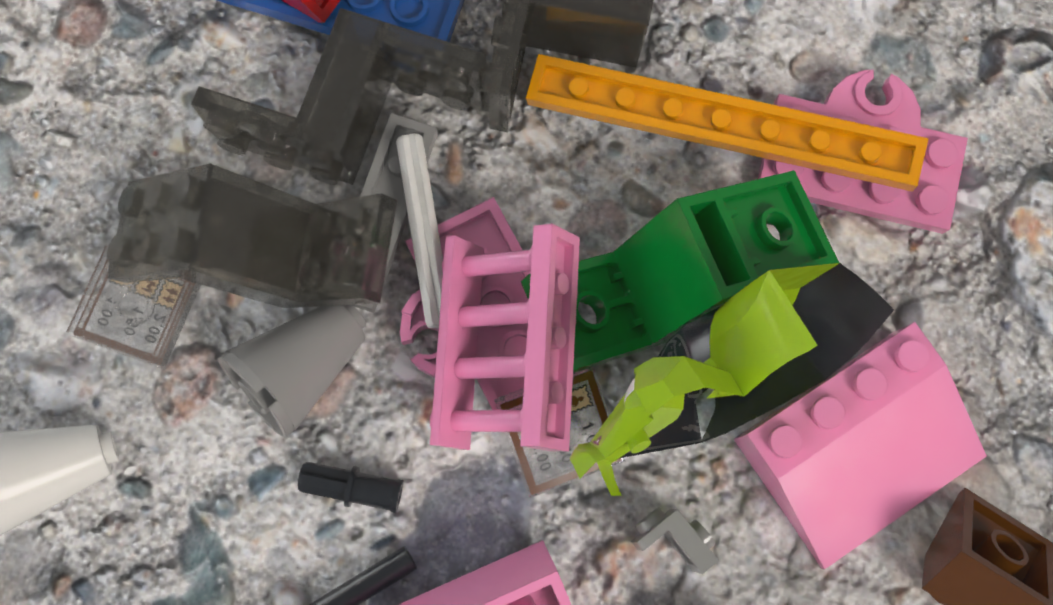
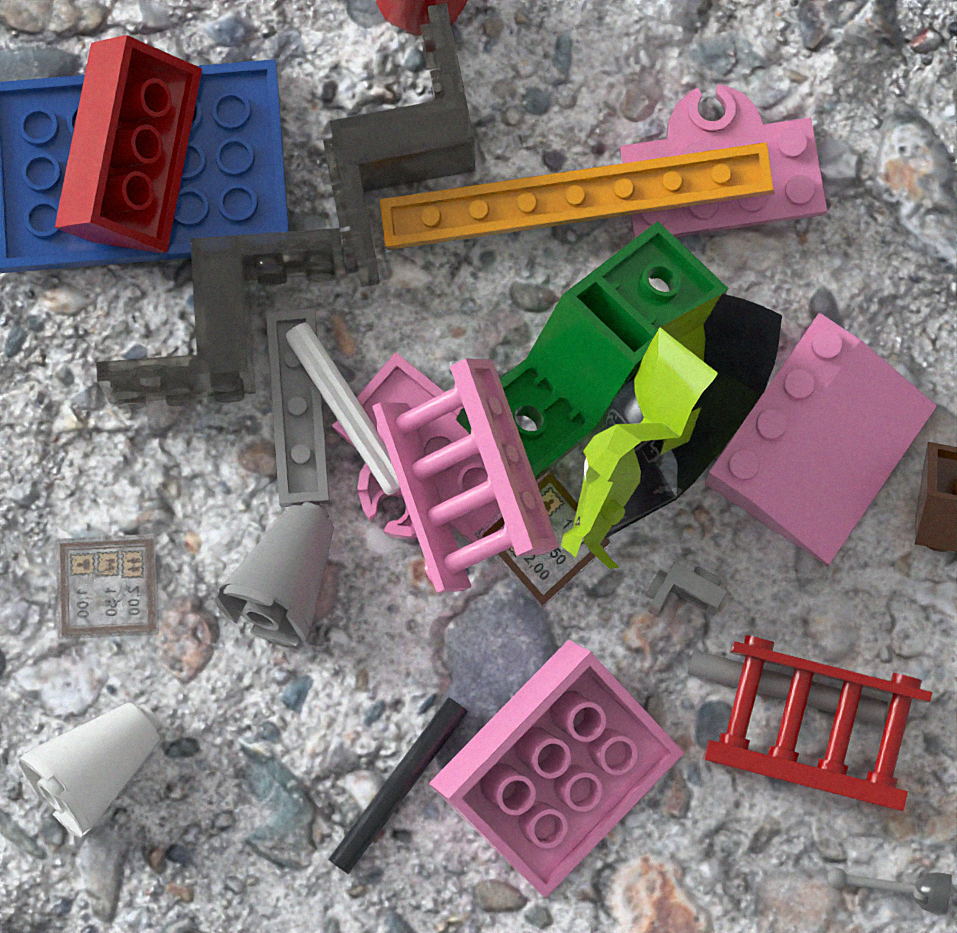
camera: 15 degrees left, 0 degrees up
(252, 239) = (198, 480): clear smoke bracket -> none
(350, 486) = (377, 665): black axle -> none

